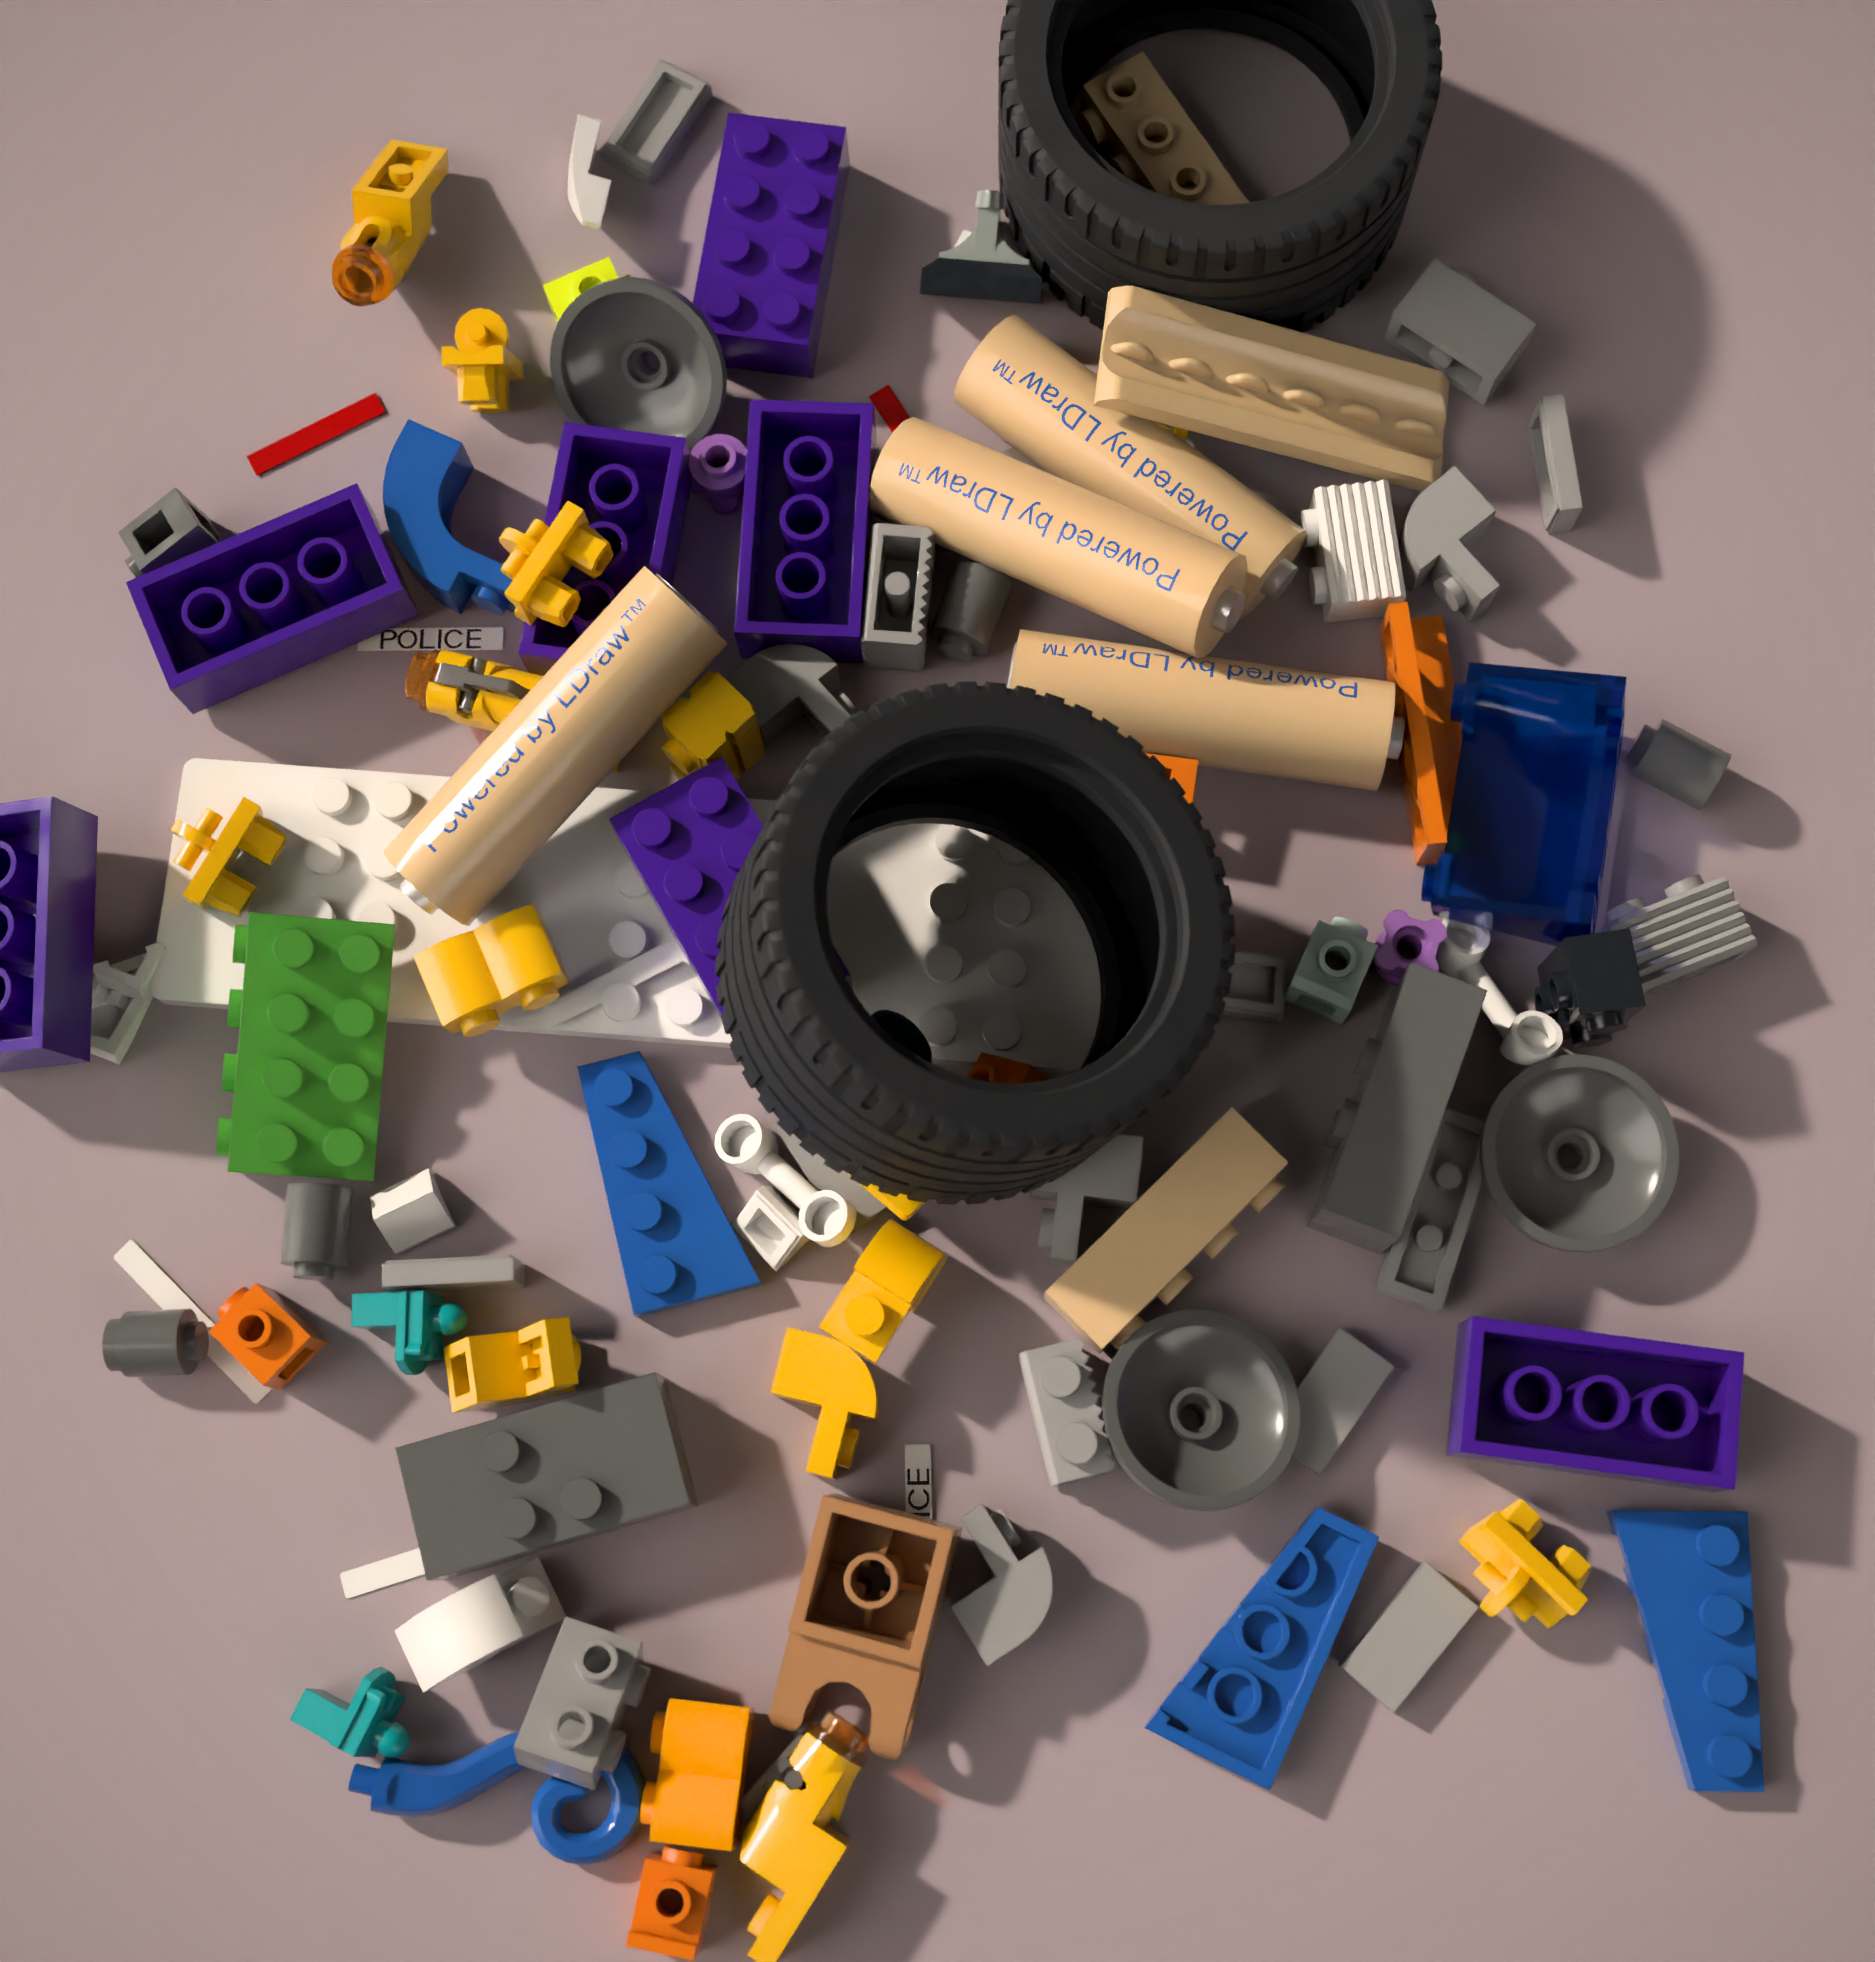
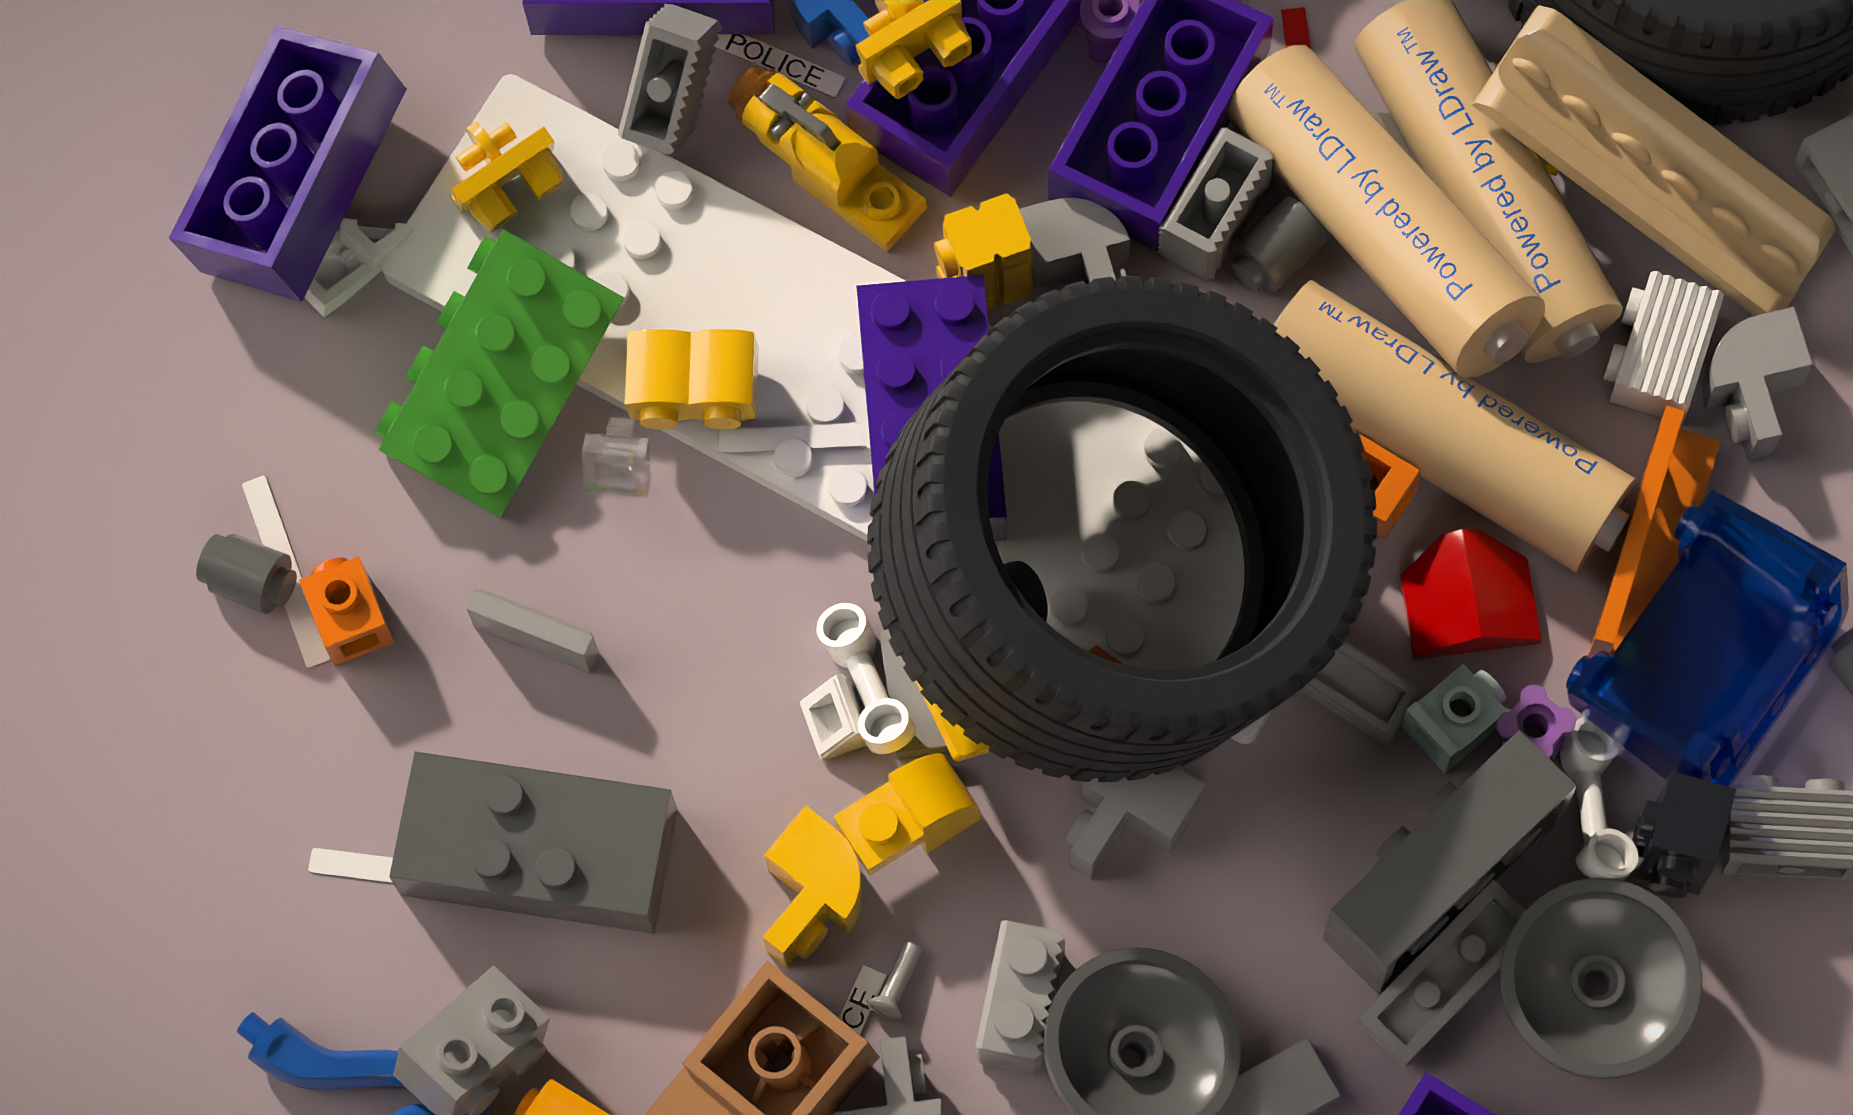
camera: 25 degrees right, 5 degrees down
(316, 1229) = (431, 536): dark grey brick -> none
(341, 699) = (669, 78): none -> light grey brick
(364, 1724) = (276, 981): teal piece -> none
(411, 1212) = (521, 561): white slope -> none
(418, 1321) = (482, 652): teal piece -> none
(458, 1078) = (616, 461): none -> clear tile
(479, 1623) = (414, 936): white brick -> none
(513, 1366) = (548, 733): yellow brick -> none
(553, 749) = (837, 202): tan piece -> none
(662, 1208) = (745, 654): blue wing -> none
(944, 1472) = (887, 1003): none -> light grey piece
(1166, 1231) = (1189, 878): tan brick -> none
(1288, 855) = (1468, 597): none -> red slope

